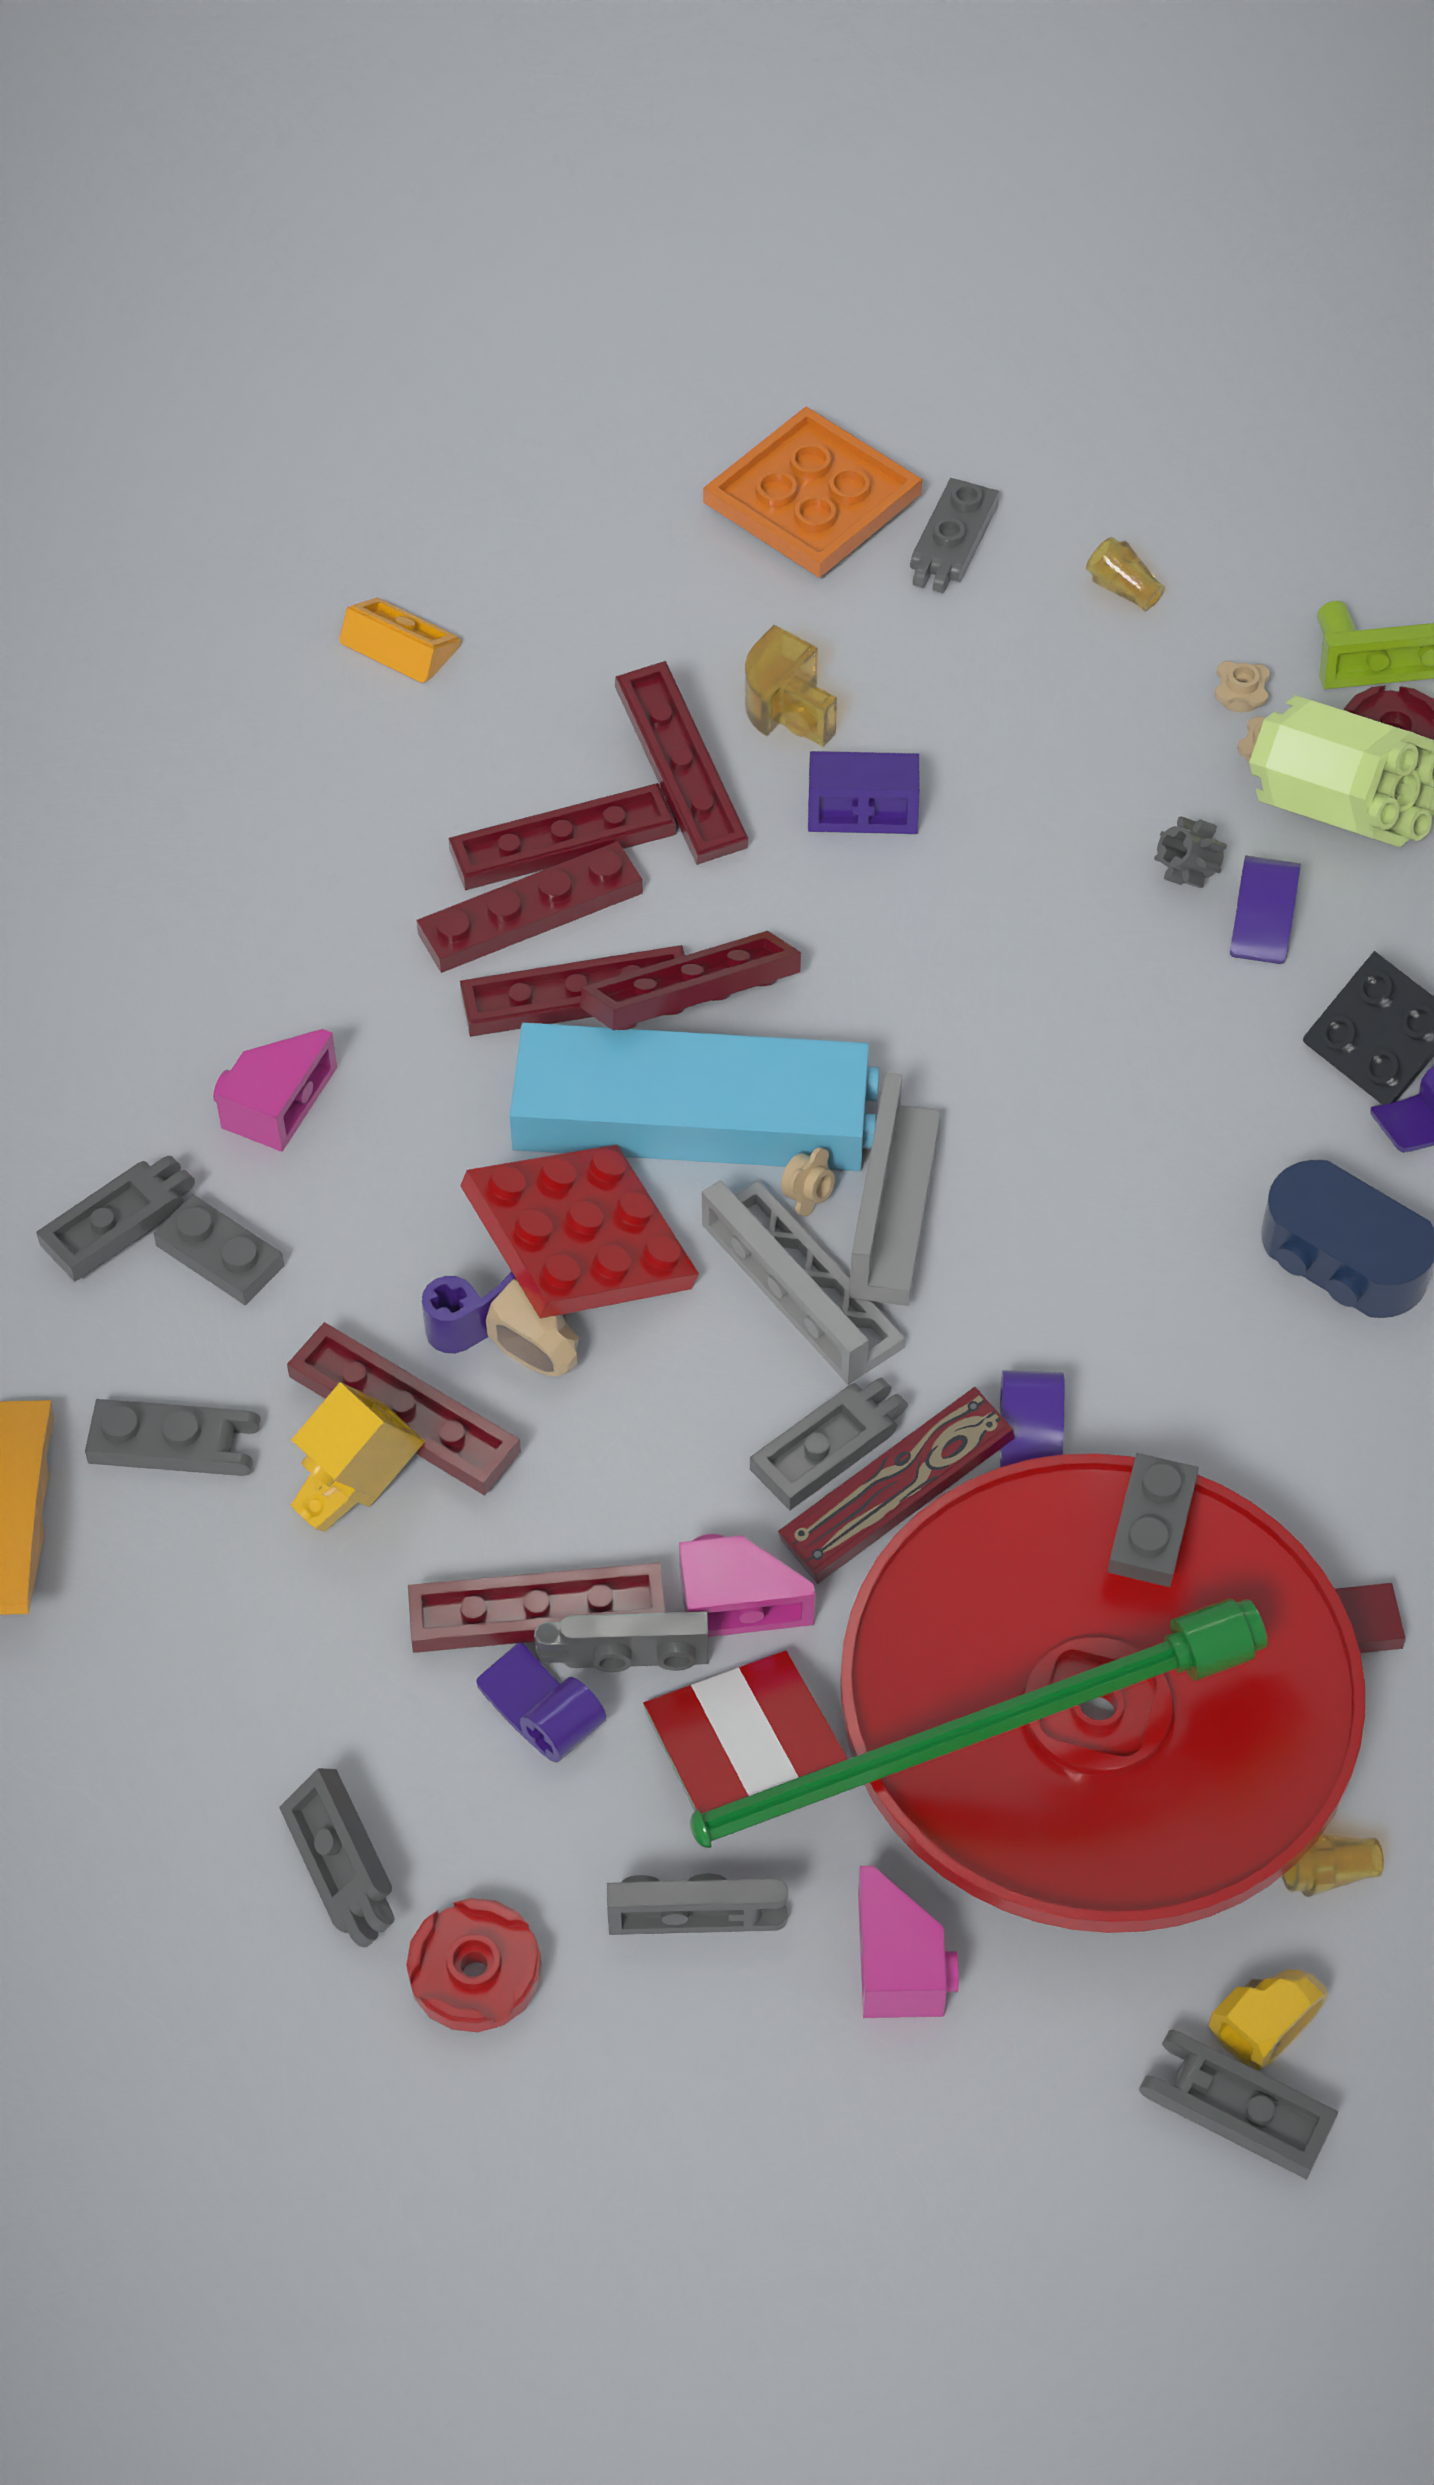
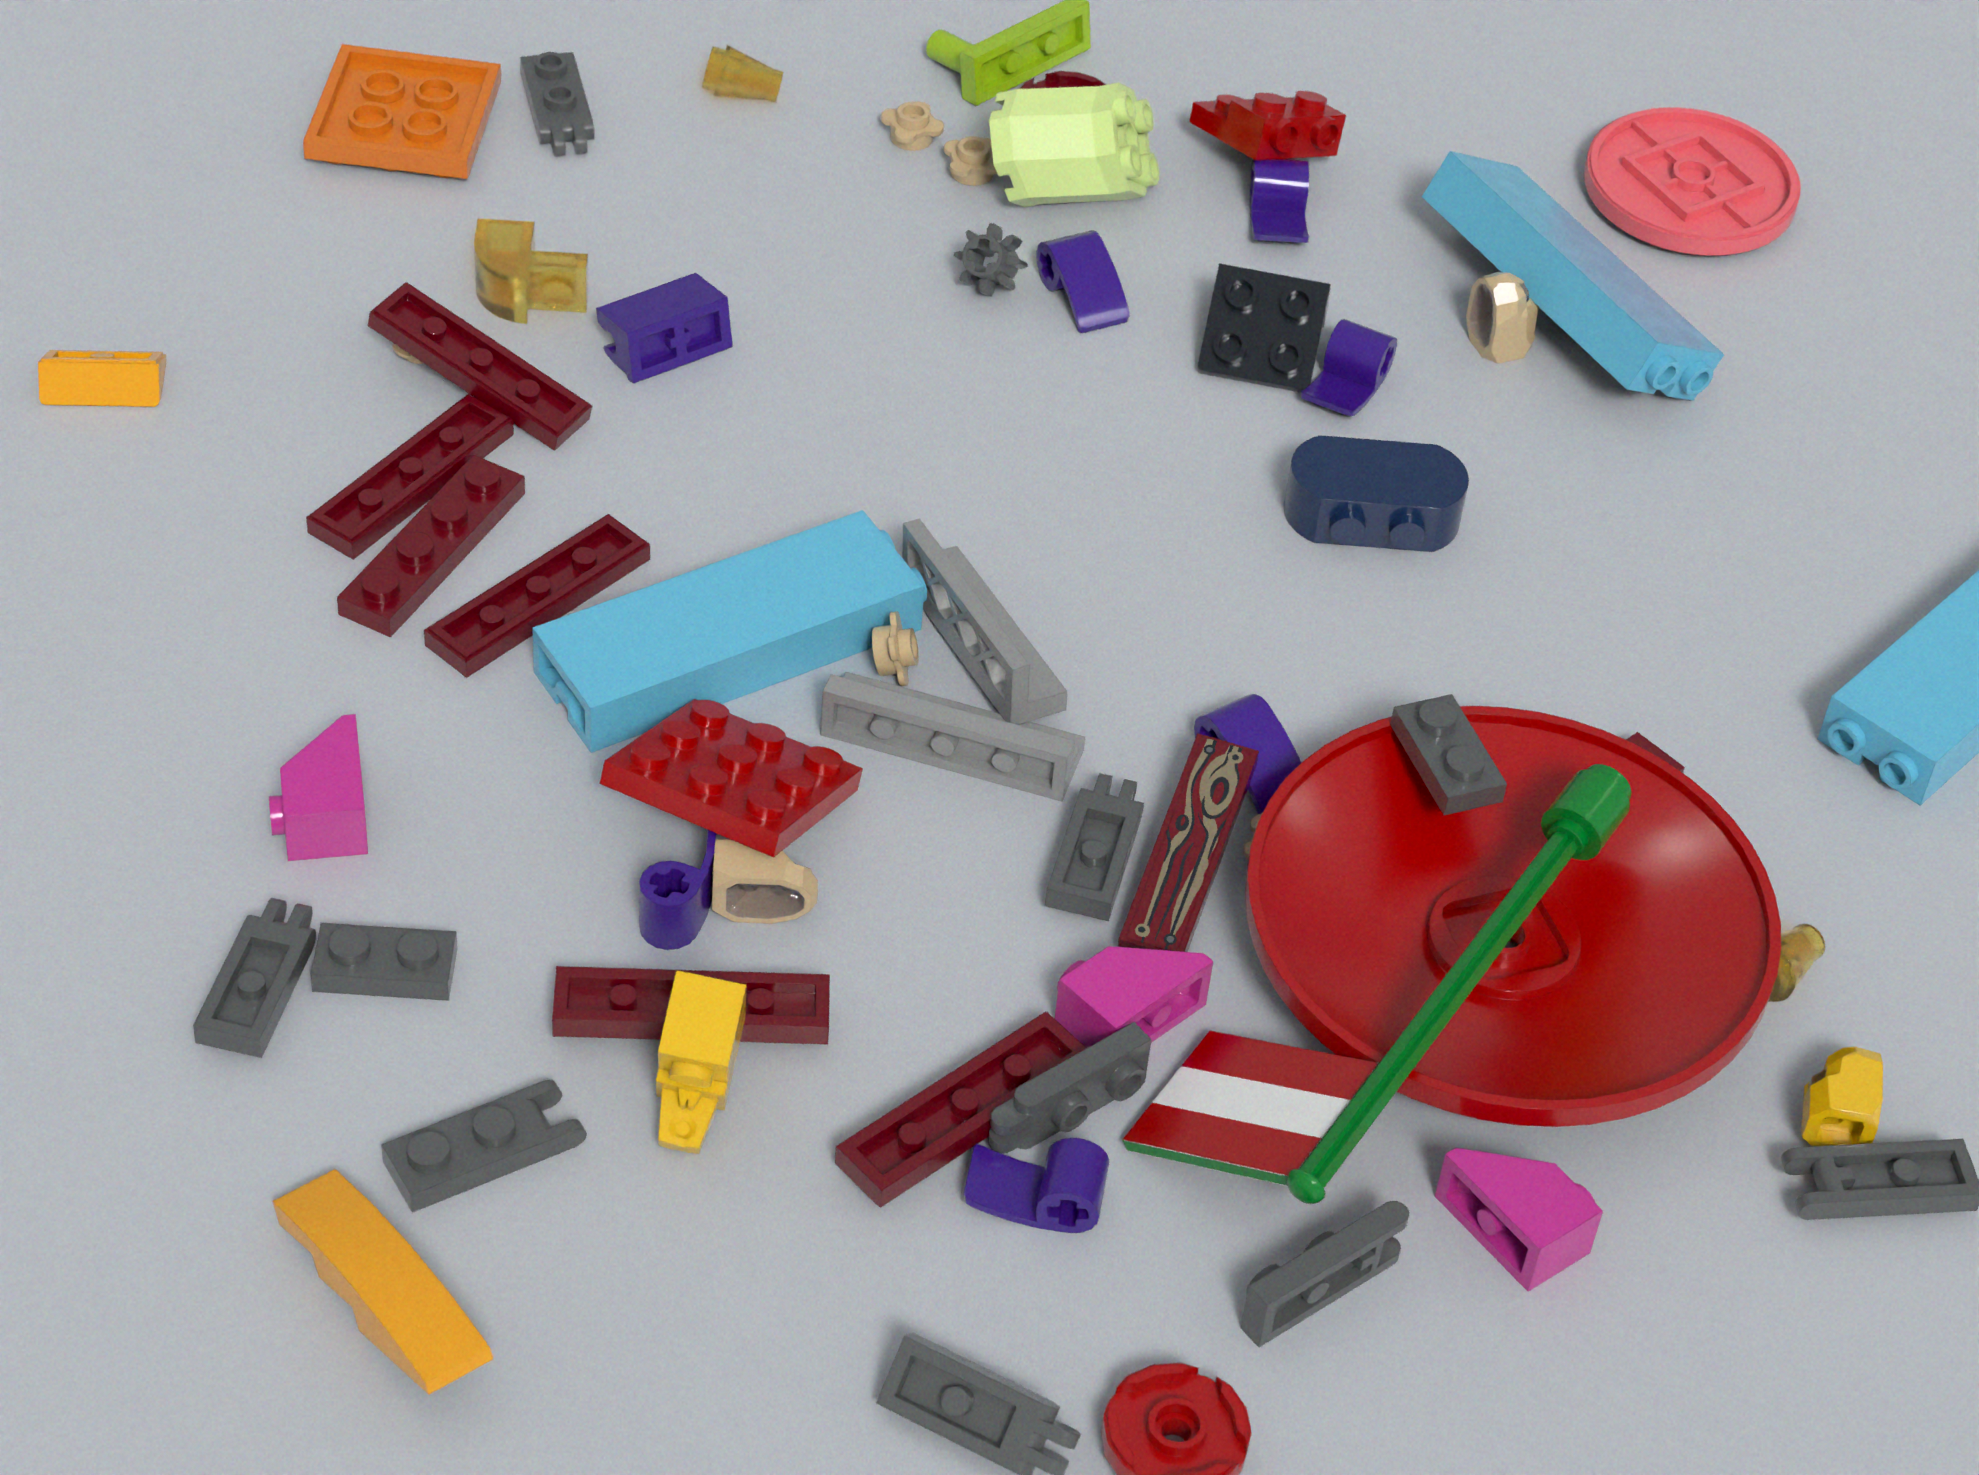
camera: 40 degrees left, 10 degrees down
(690, 980) = (653, 532): dark red plate -> none

